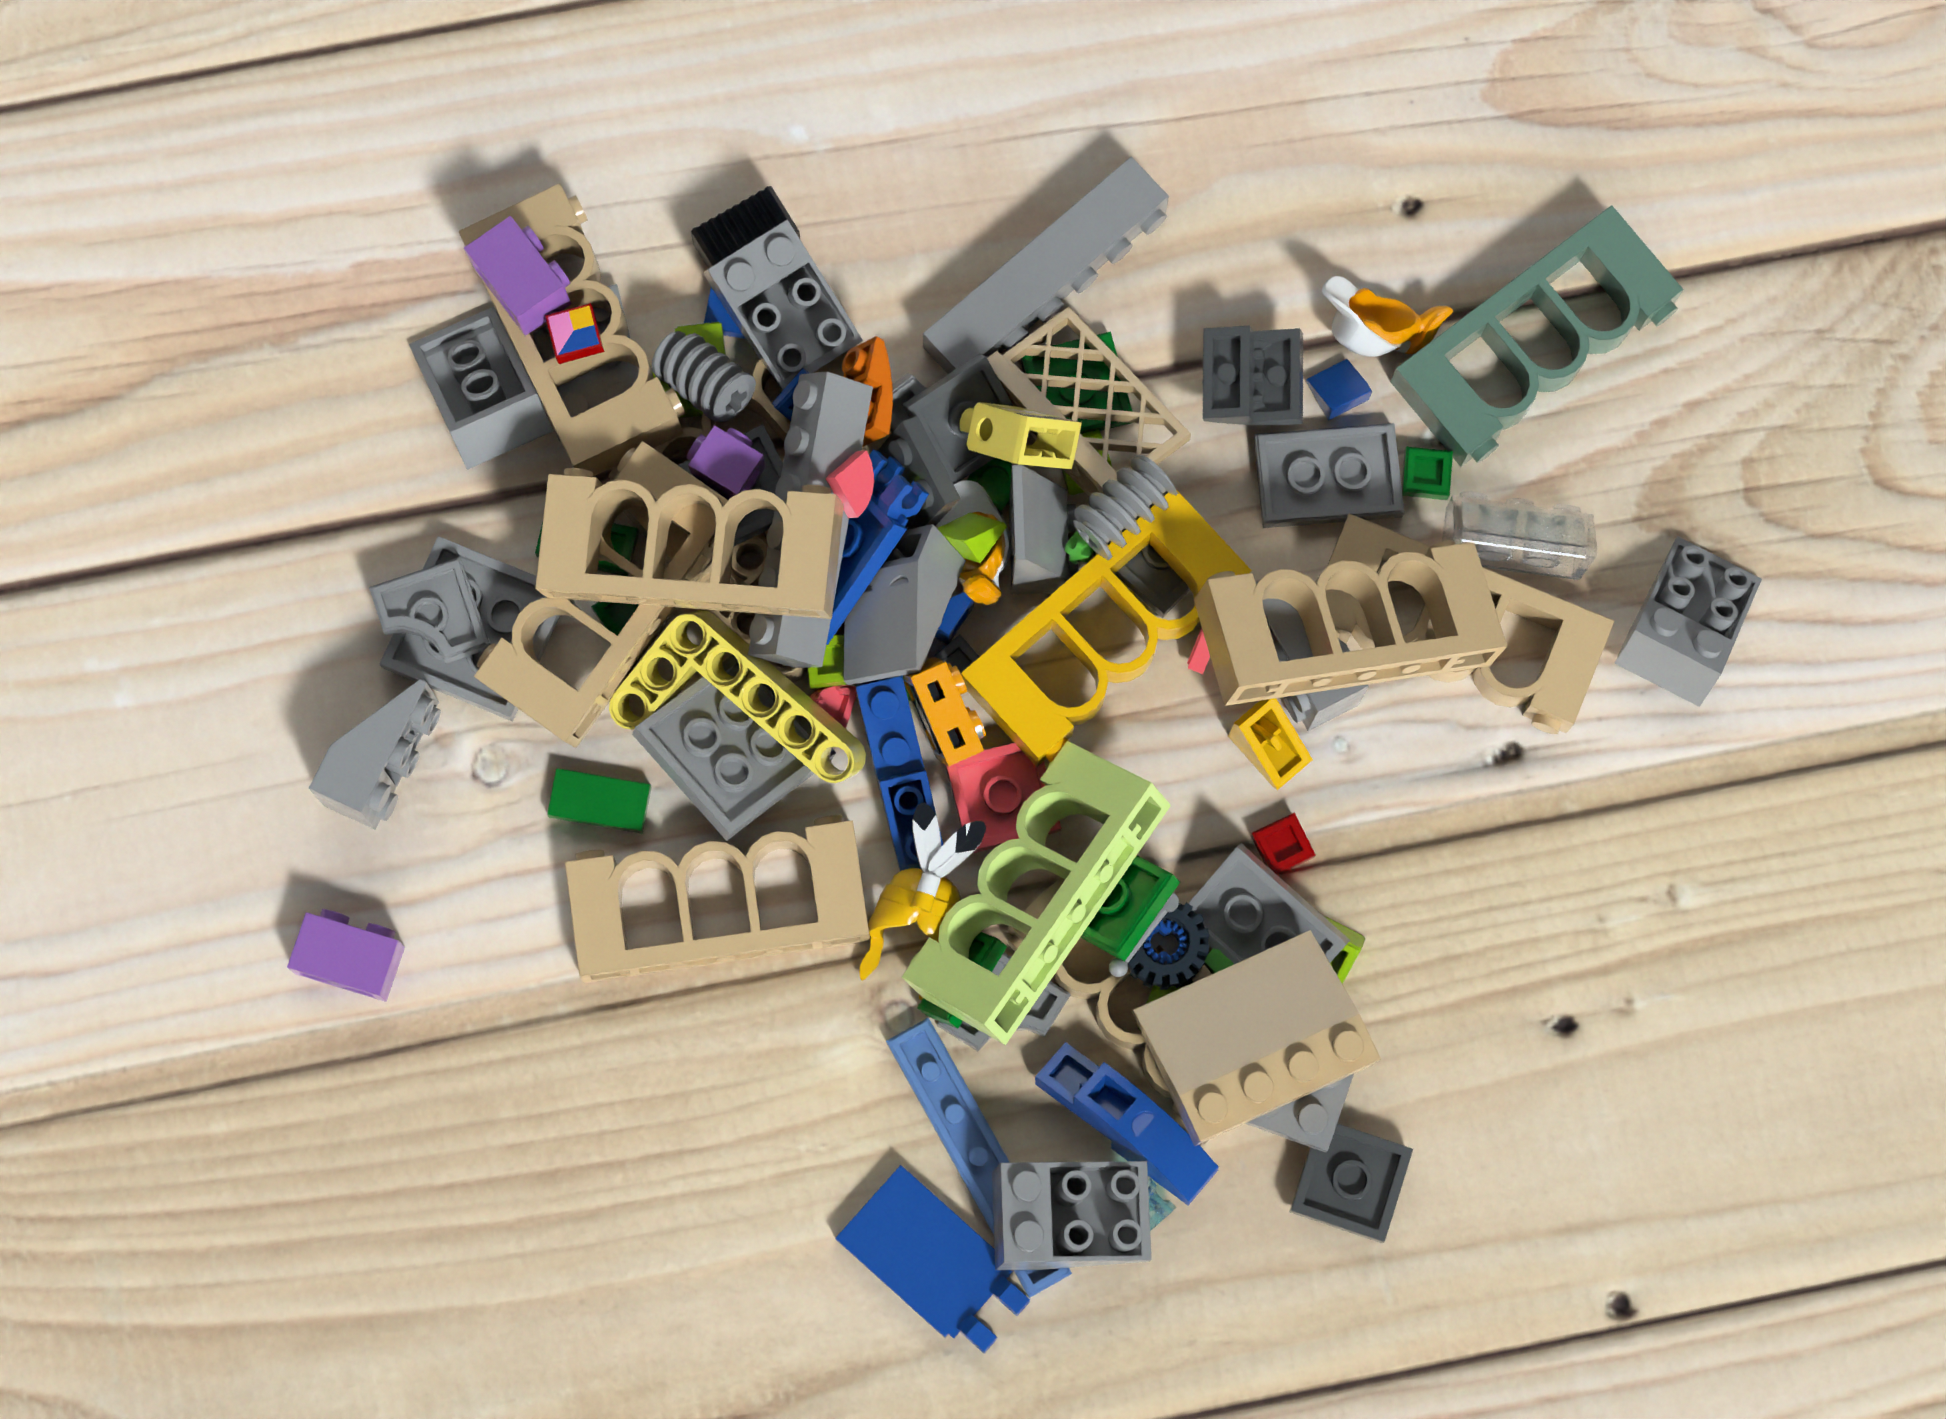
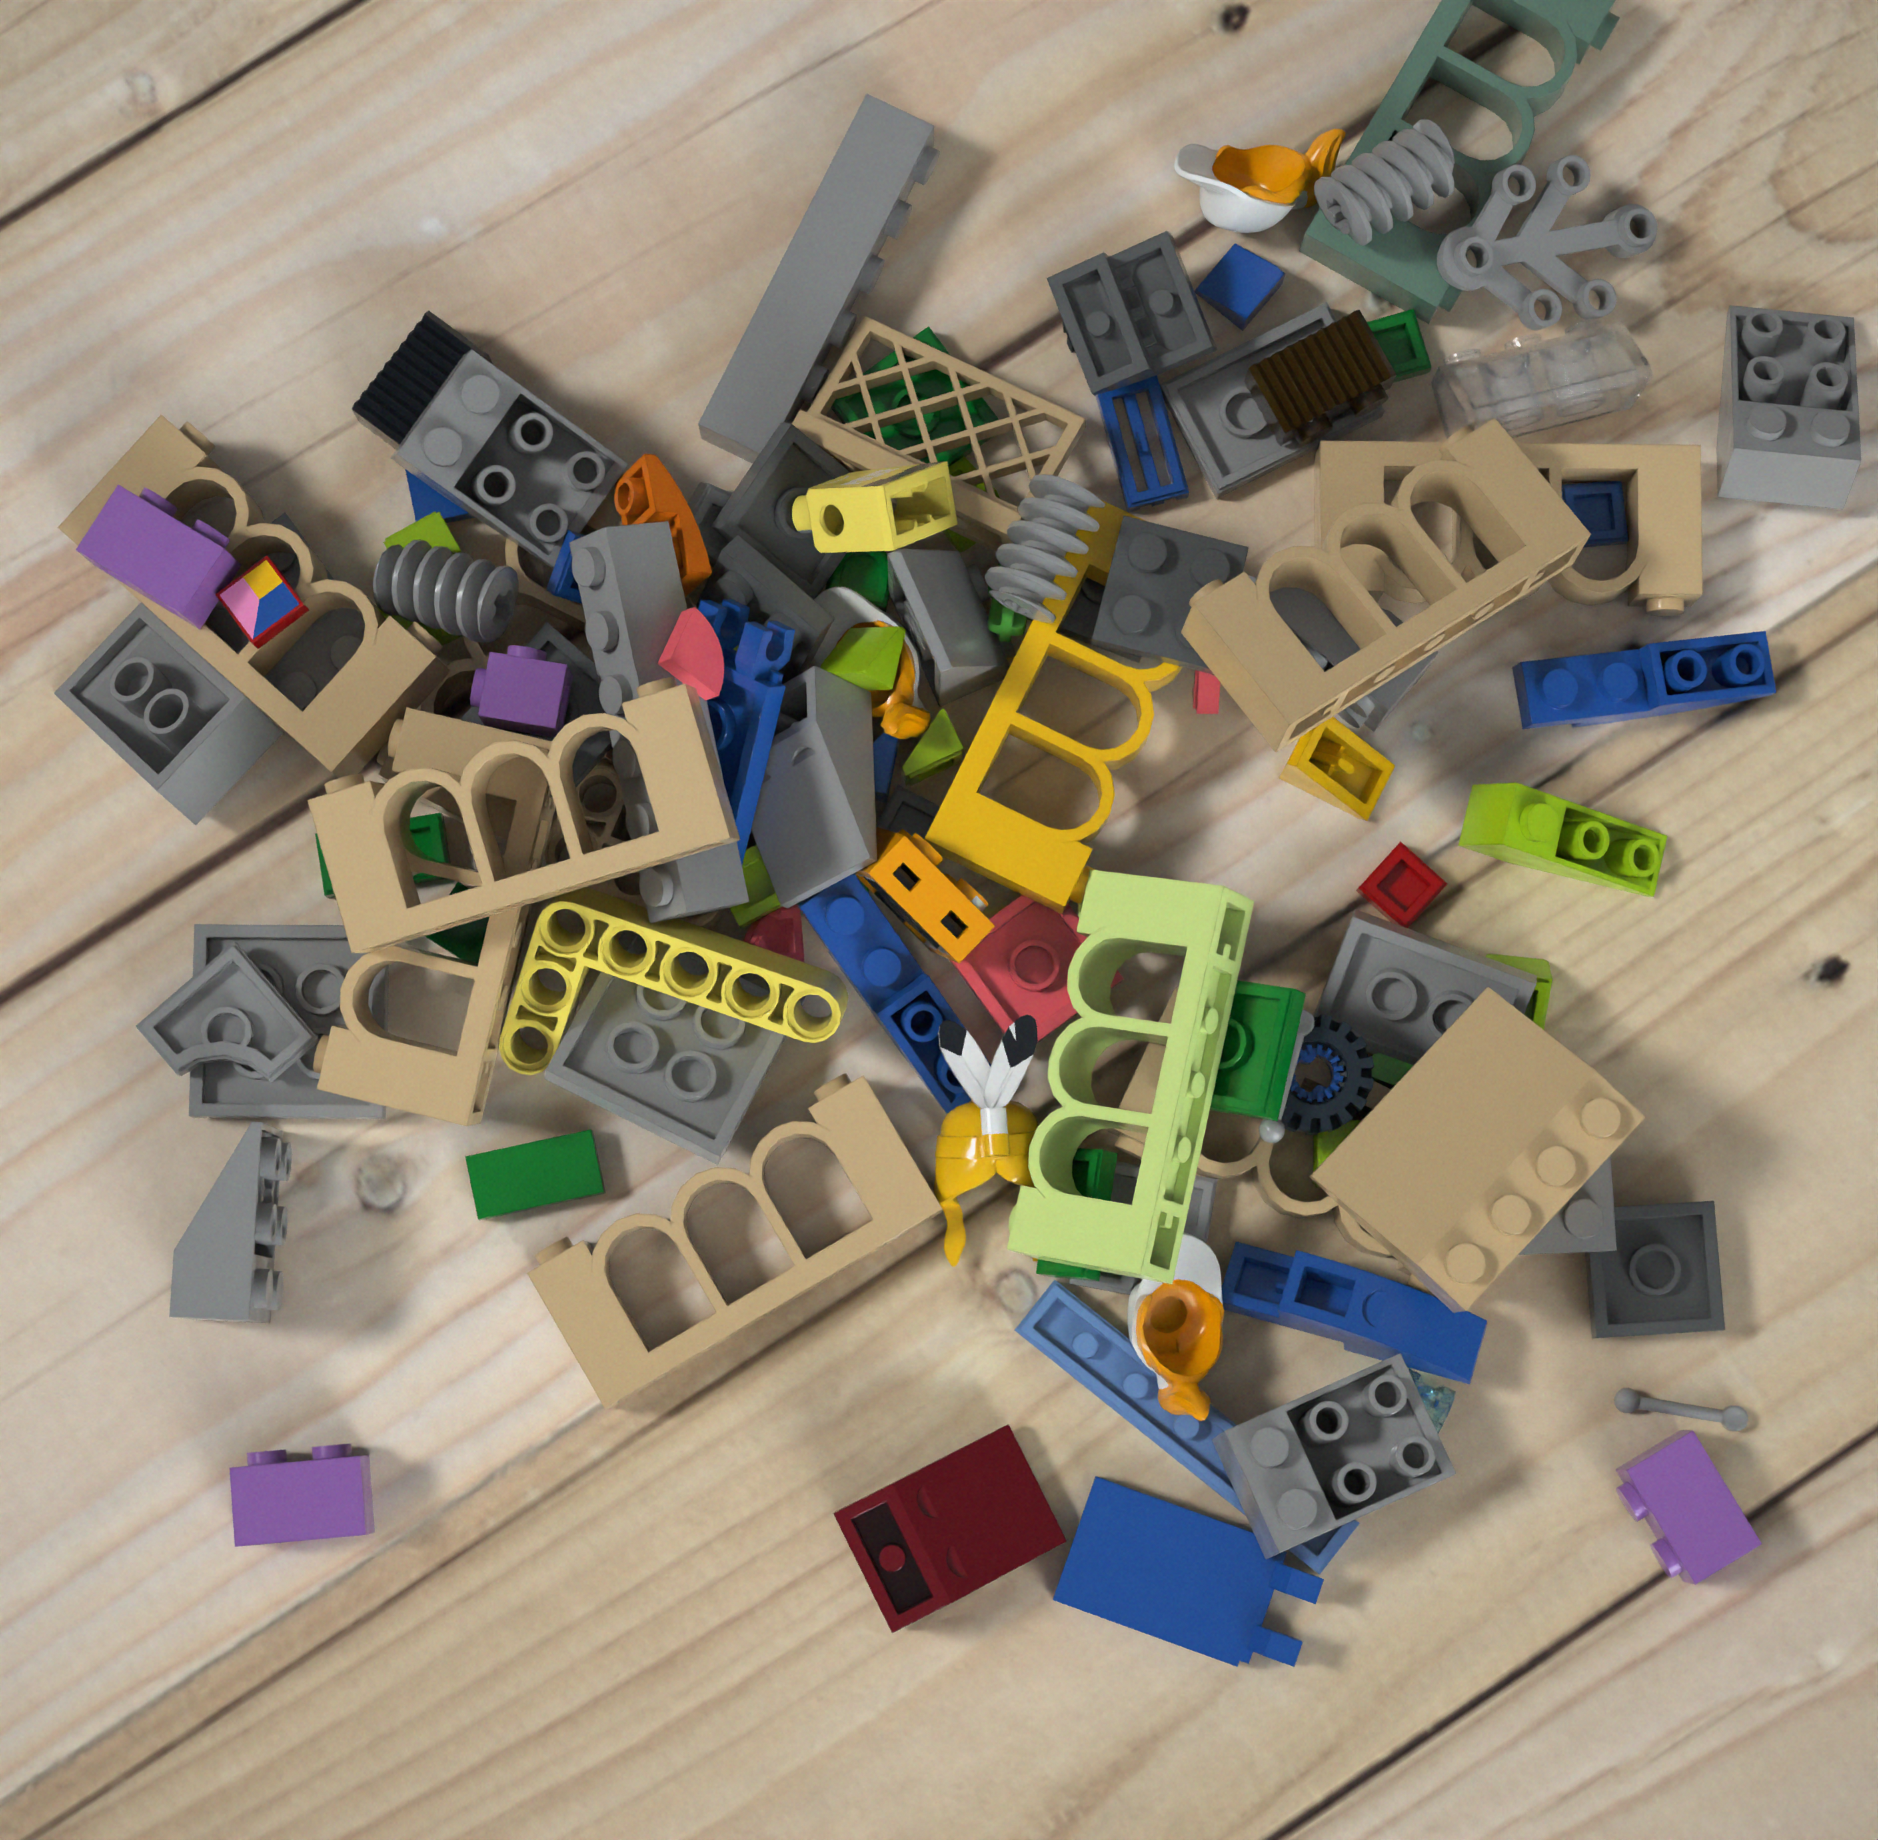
camera: 20 degrees left, 5 degrees up
(783, 1157) = (949, 1528): none -> dark red slope
(992, 621) = (935, 752): none -> lime slope
(1002, 1080) = (1180, 1328): none -> light orange hair
(1185, 562) = (1151, 588): none -> dark grey plate
(1221, 507) = (1155, 493): none -> blue tile
(1306, 1355) = (1686, 1508): none -> medium lavender brick
(1366, 472) = (1321, 379): none -> dark brown brick
(1366, 1309) = (1731, 1417): none -> light grey hinge
(1408, 855) = (1561, 838): none -> lime slope
(1465, 353) = (1388, 182): none -> light grey piece
(1510, 770) = (1644, 681): none -> blue slope
(1525, 642) = (1600, 510): none -> blue tile
(1556, 441) = (1538, 246): none -> light grey plant

